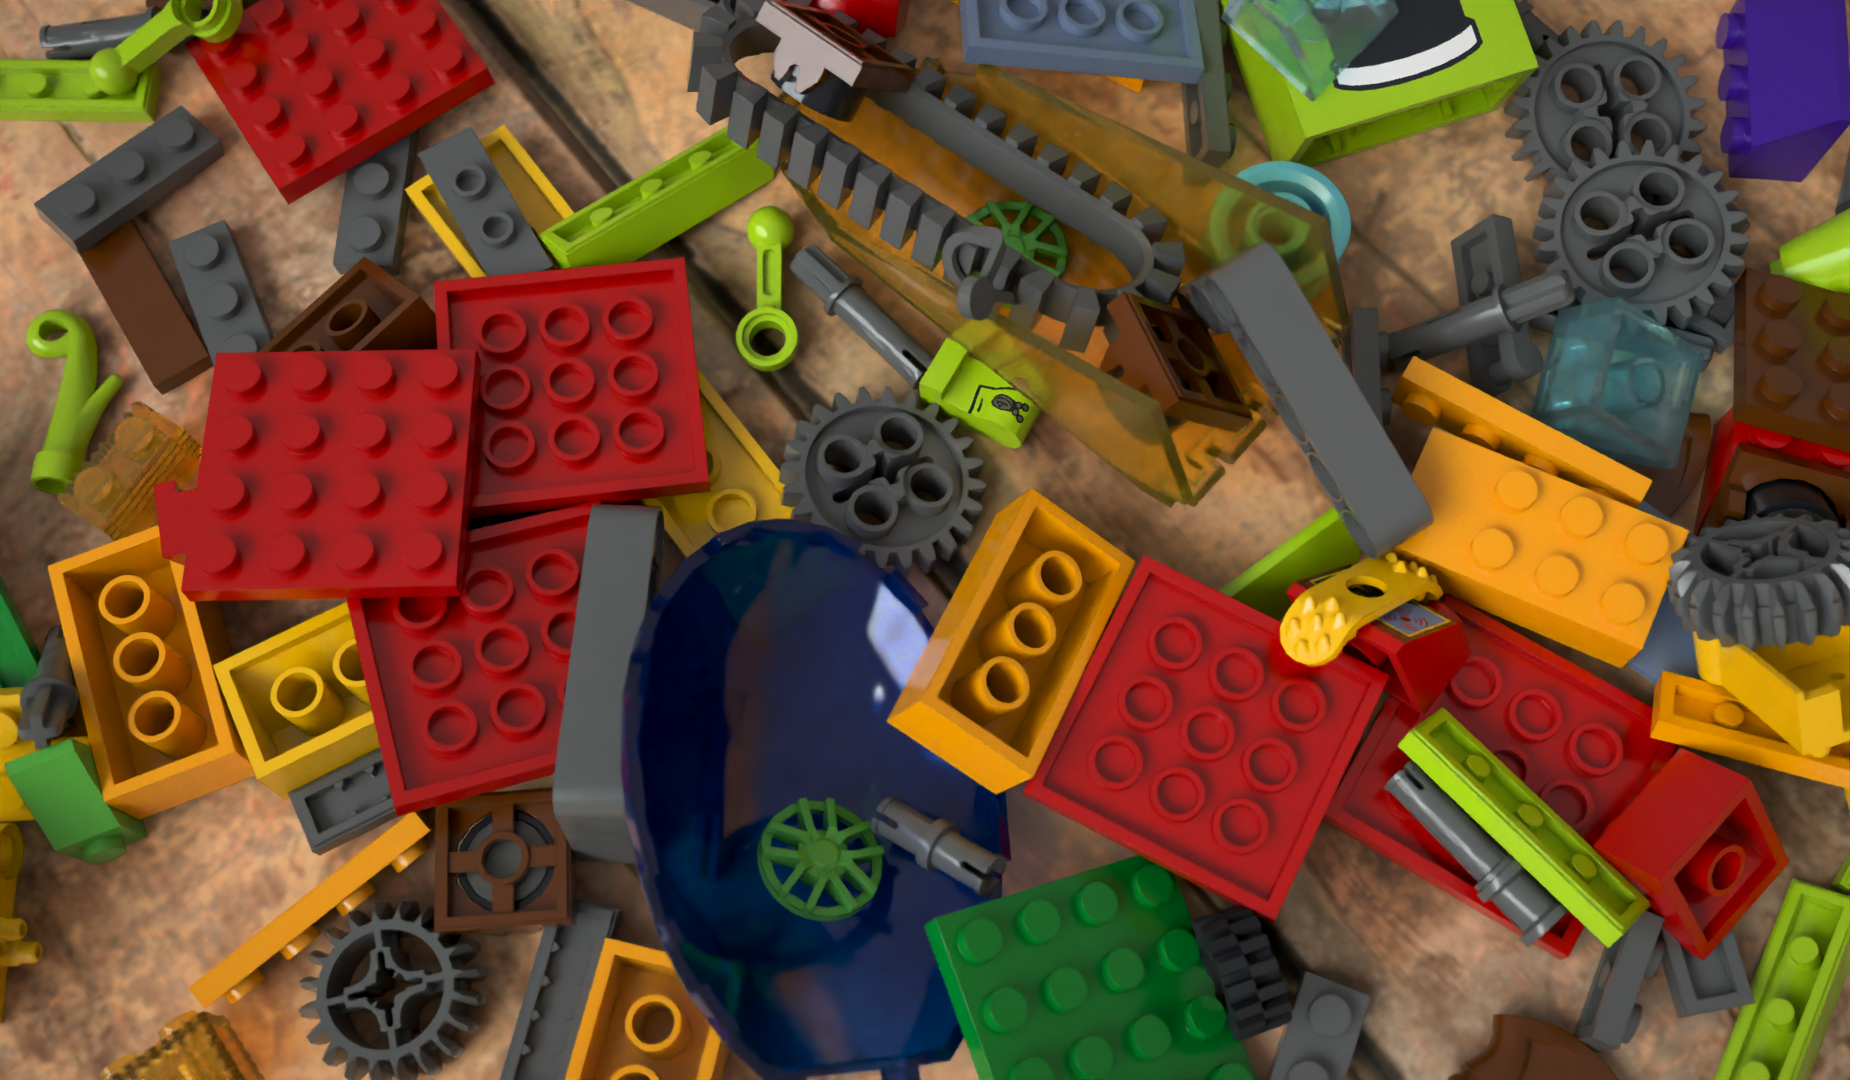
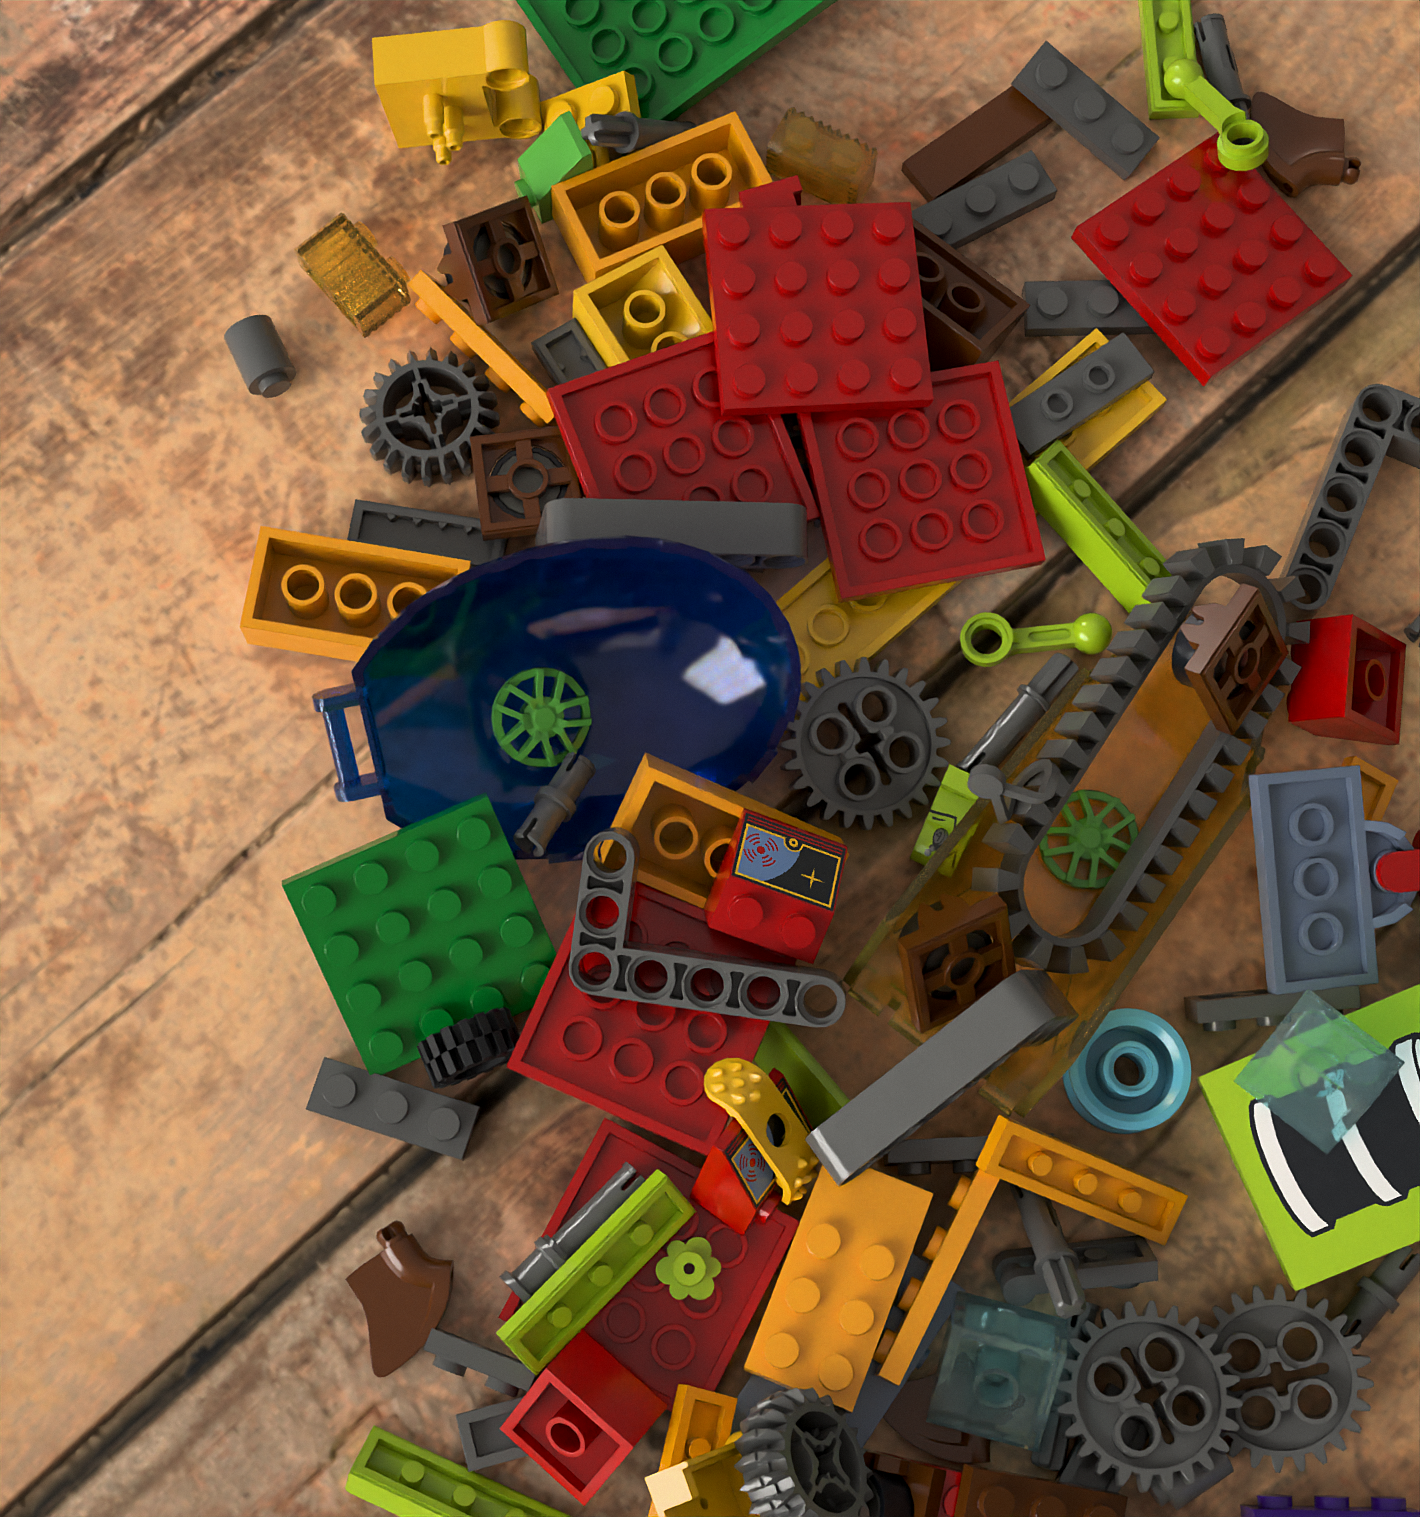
camera: 80 degrees right, 5 degrees up
(77, 403) = (885, 107): lime plant -> none
(192, 887) = (497, 261): none -> reddish brown piece
(1073, 568) = (776, 886): none -> slope
(1163, 683) = (679, 963): none -> dark grey beam
(1405, 284) = (1081, 1180): none -> light orange plate
(1506, 741) = (671, 1269): none -> lime plant

